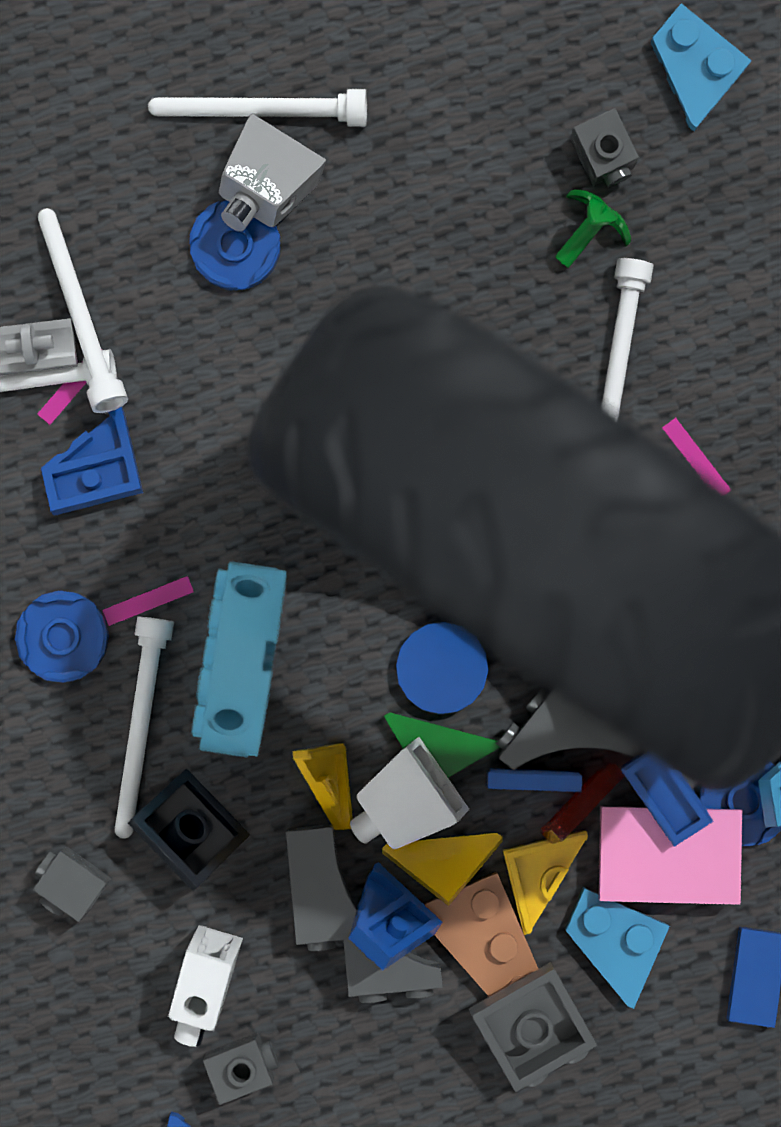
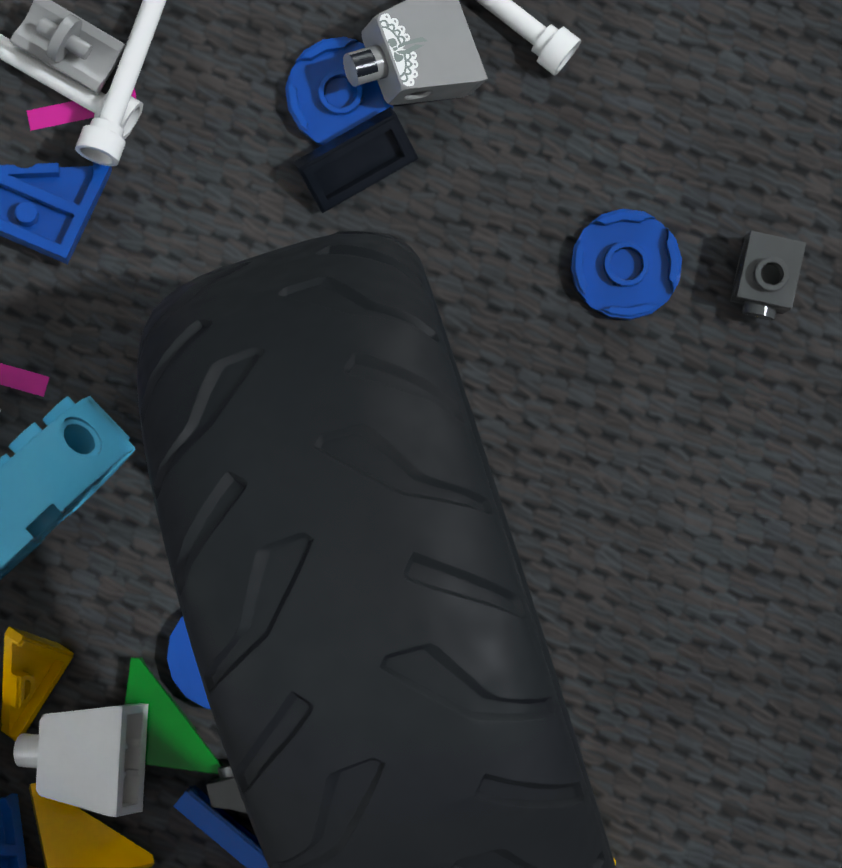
camera: 35 degrees right, 0 degrees up
(279, 279) = (356, 160): none -> black tile
(502, 231) = (612, 278): none -> blue tile
(598, 215) = (709, 334): green plant -> none
(632, 278) = (696, 421): white piece -> none
(692, 452) = (626, 641): dark pink piece -> none

